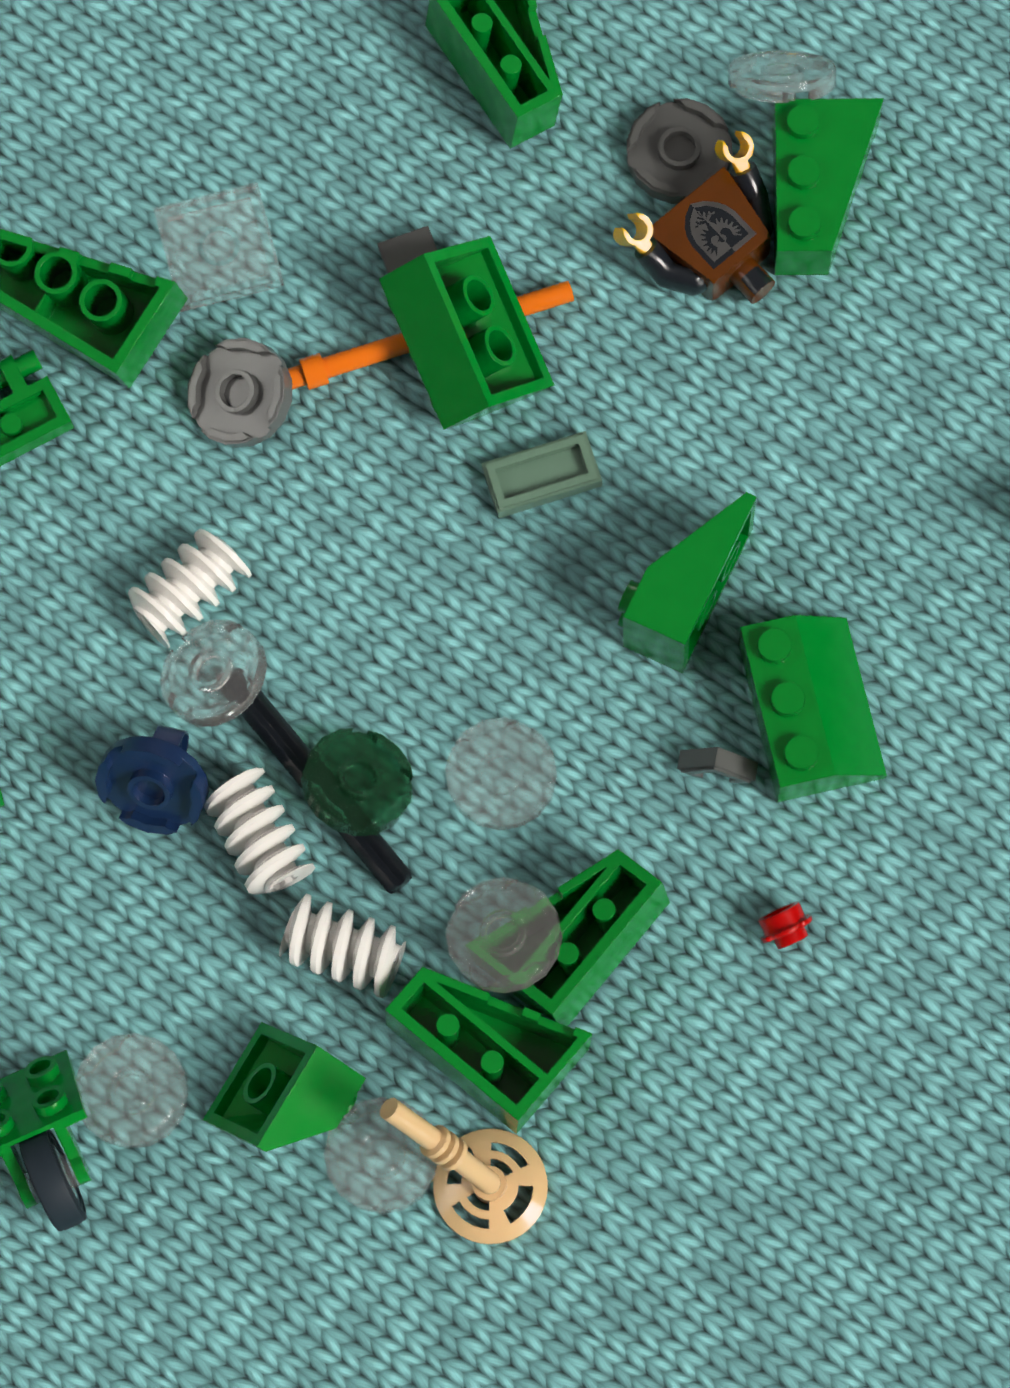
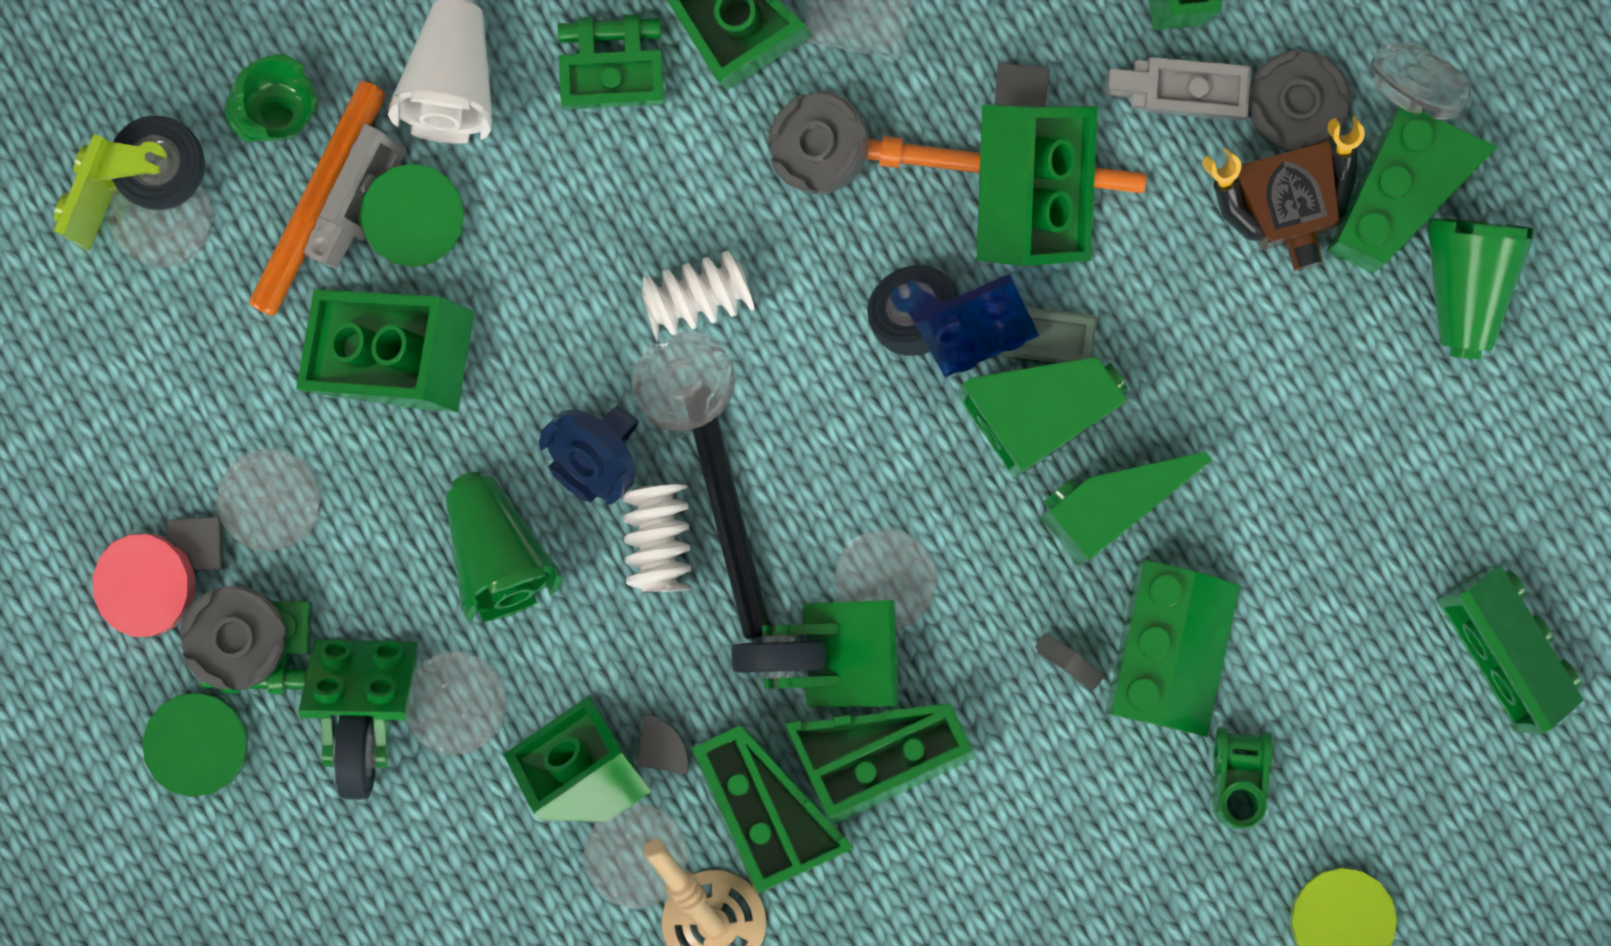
camera: 20 degrees right, 10 degrees up
(105, 921) = (495, 551): none -> green cone
(343, 946) = (683, 667): white piece -> none
(357, 782) = (761, 533): clear green tile -> none
(357, 1036) = (661, 747): none -> dark grey tile
(453, 498) = (922, 313): none -> clear blue plate
(482, 843) = (846, 654): none -> green plate
(504, 935) = (820, 731): clear tile -> none
(564, 186) = (1184, 88): none -> light grey hinge
(570, 534) = (1041, 407): none -> green slope
(785, 925) = (1060, 824): red plate -> none
(924, 229) = (1474, 279): none -> green cone
(934, 786) = (1241, 773): none -> green piece

